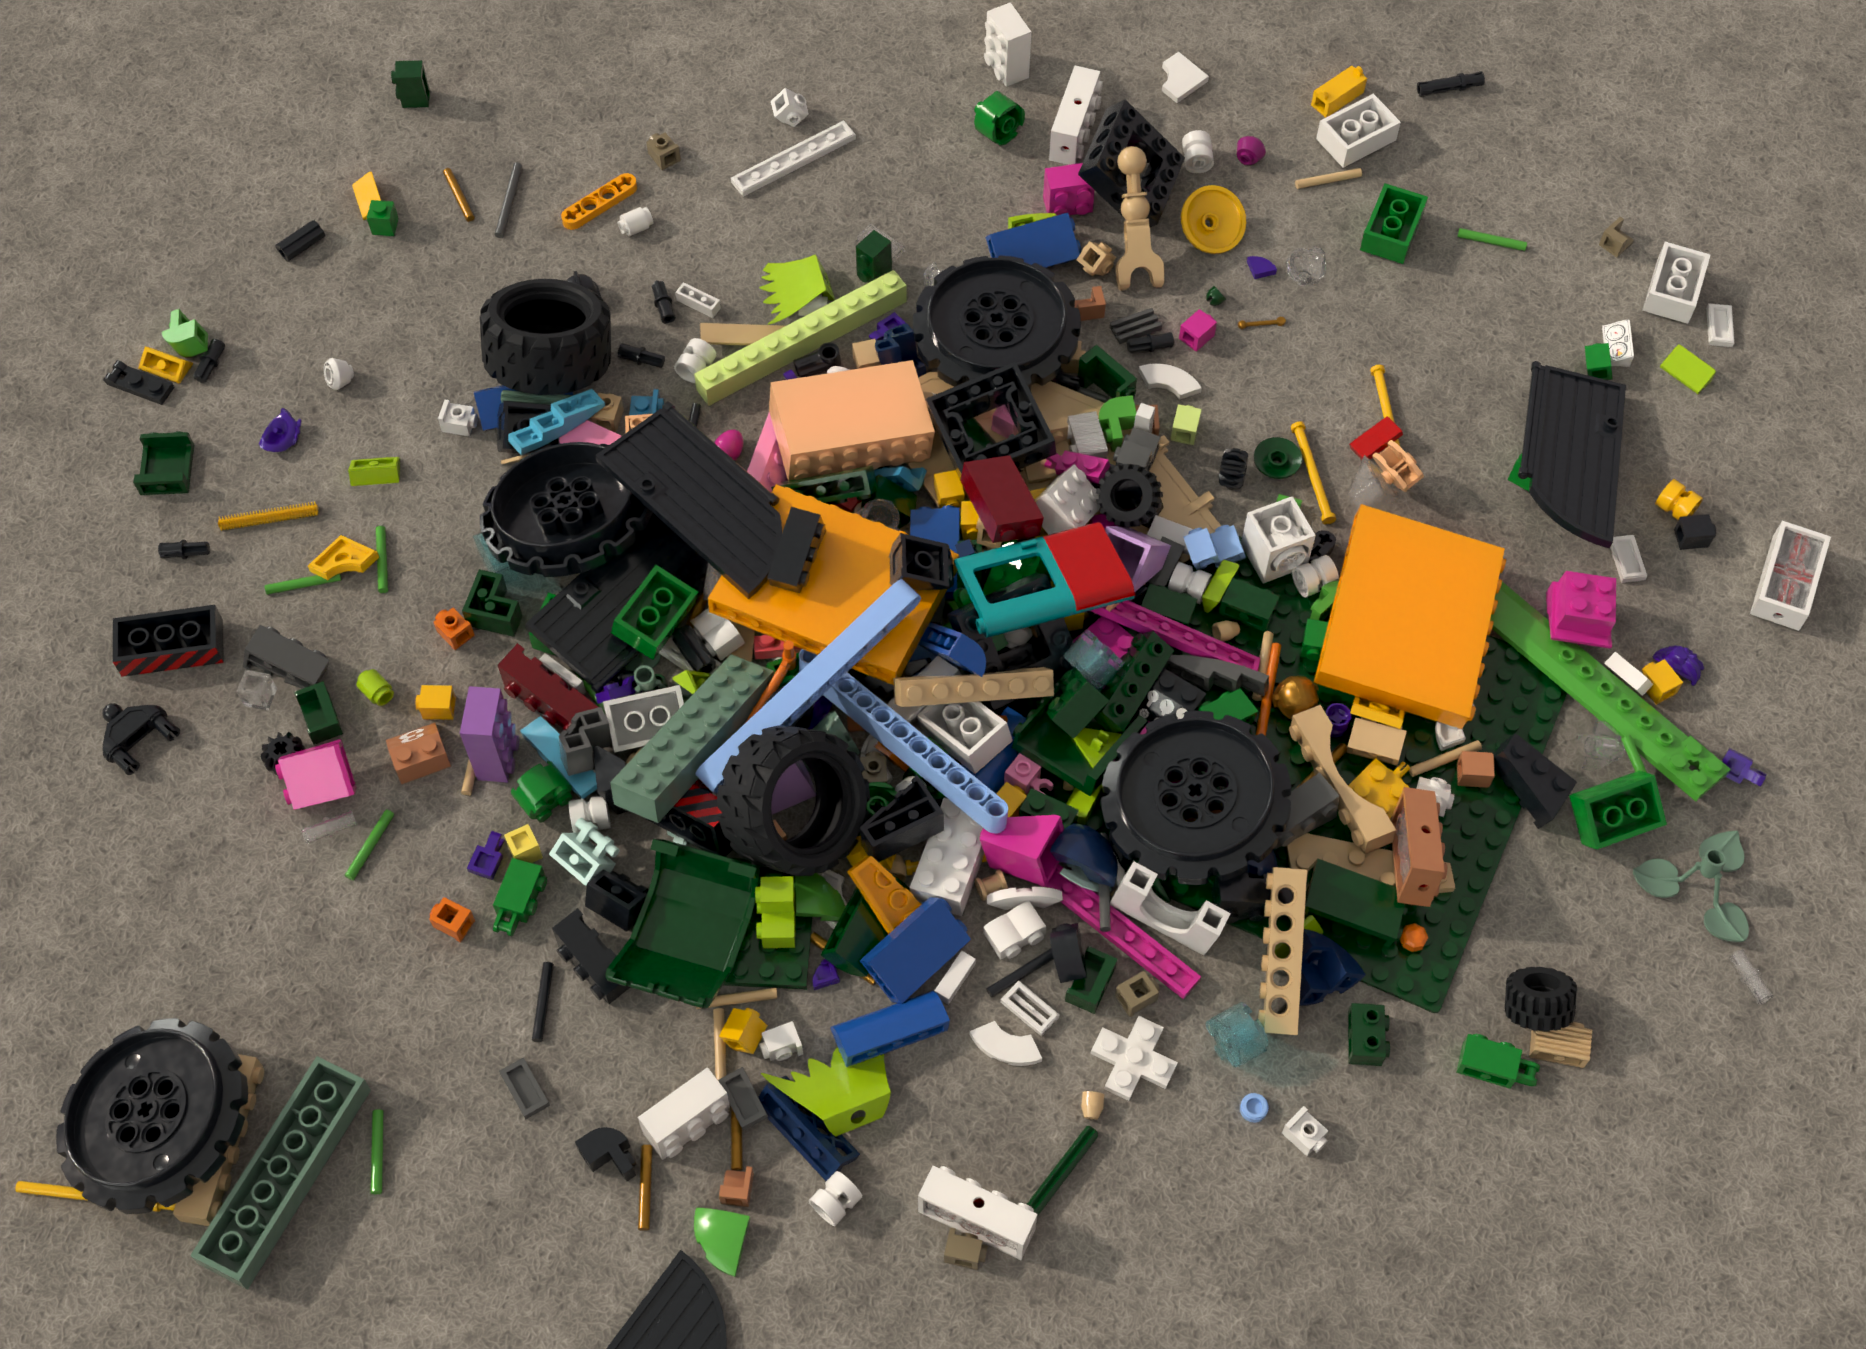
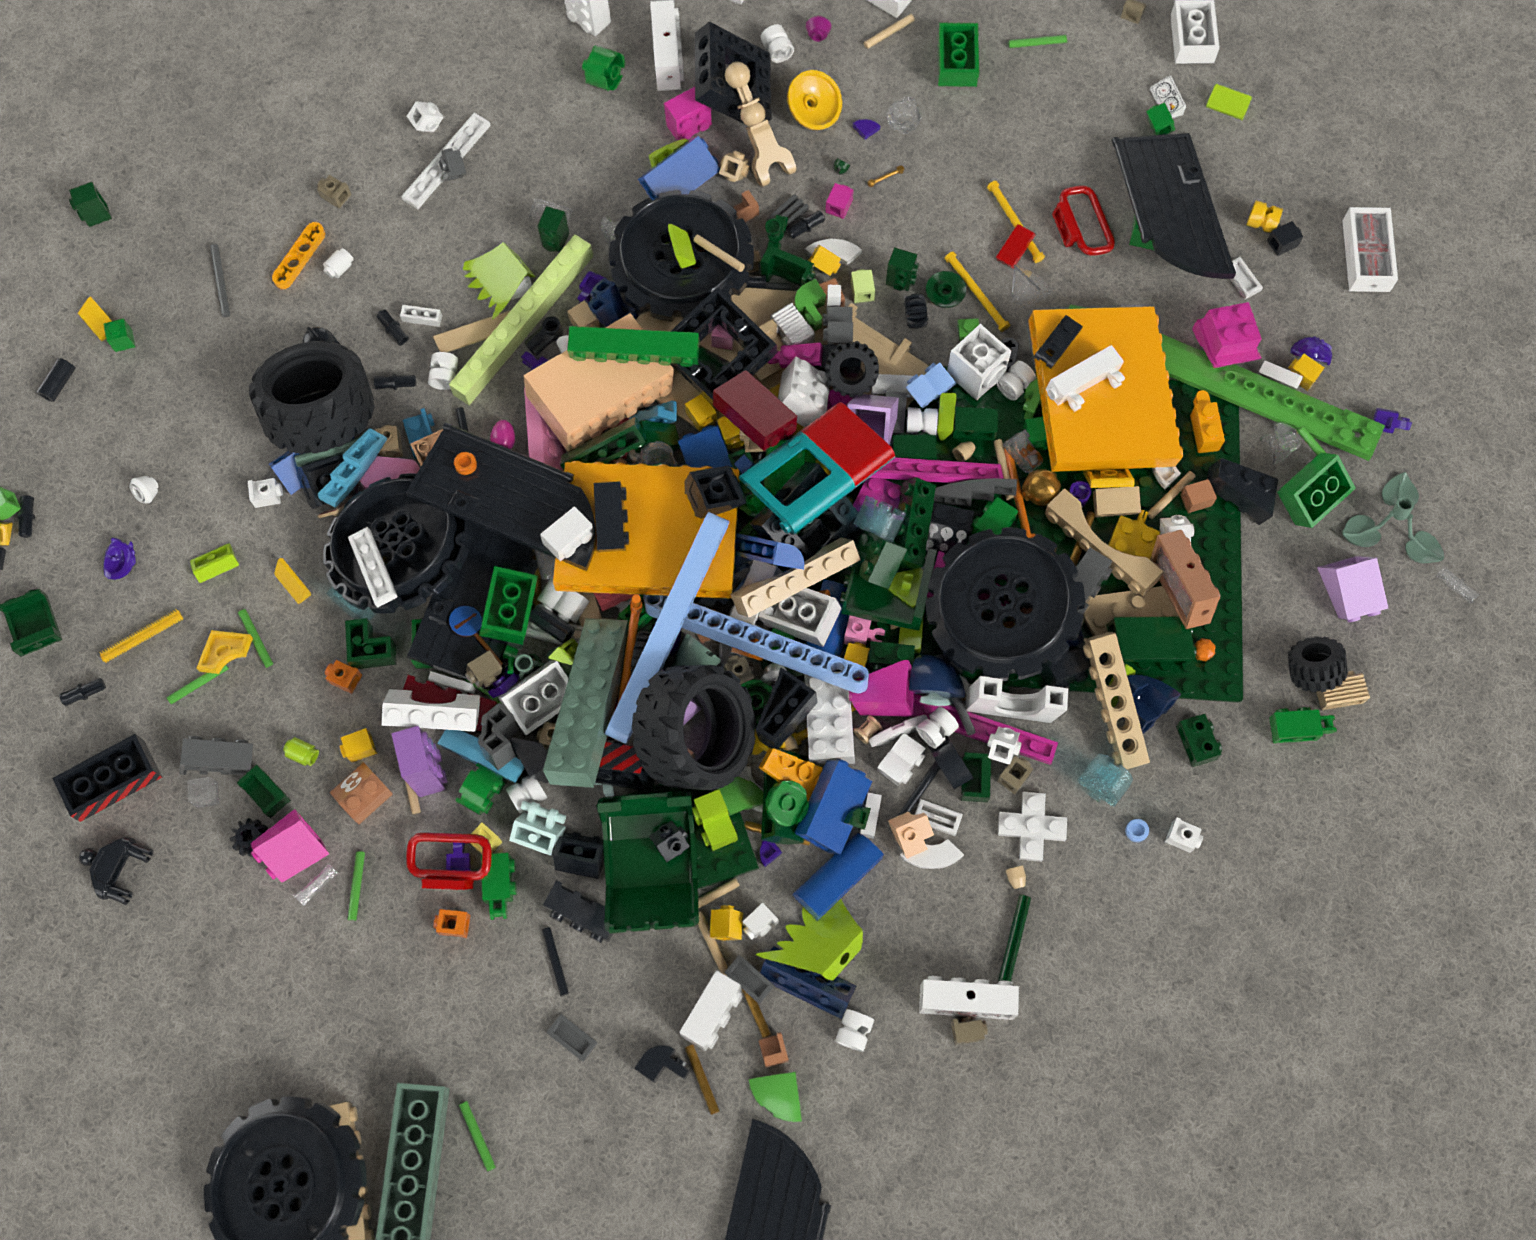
camera: 20 degrees left, 10 degrees up
(444, 516) = (291, 581): none -> yellow slope
(458, 194) = (174, 290): pearl gold bar -> none
(467, 870) = (448, 878): none -> red bar
(497, 672) = (404, 712): none -> white arch
(527, 519) = (372, 567): none -> white tile
(598, 667) = (483, 670): none -> dark tan brick
(600, 614) = (467, 622): none -> blue piece
(633, 663) = (510, 653): none -> green hand
(669, 447) = (465, 463): none -> orange tile
(719, 915) = (670, 840): none -> black brick
(743, 551) = (567, 534): none -> white brick
(796, 162) = (451, 164): none -> dark grey brick
(863, 922) = (787, 803): none -> green tile
(899, 390) = (633, 345): none -> green brick
(937, 971) = (858, 817): none -> dark green tile
(991, 1008) = (910, 832): none -> light nougat brick
(997, 312) = (681, 246): none -> lime slope
(1034, 331) = (719, 253): none -> tan bar
(1074, 900) = (935, 729): none -> white wheel
(1113, 334) = (775, 229): none -> dark green bar
(1135, 952) = (1004, 745): none -> white brick
(1154, 384) = (825, 260): none -> yellow brick
(1235, 420) = (902, 269): none -> dark green brick
(1291, 652) = (1023, 451): none -> clear leg
(1375, 545) = (1058, 341): none -> black plate
(1389, 590) = (1085, 375): none -> white brick
(1398, 467) = (1045, 265): light nougat hinge -> none
(1446, 439) = (1069, 228): none -> red bar
(1517, 695) = (1206, 424): none -> light orange brick
(1622, 935) = (1354, 587): none -> lavender slope
(1720, 325) = (1238, 55): white tile -> none

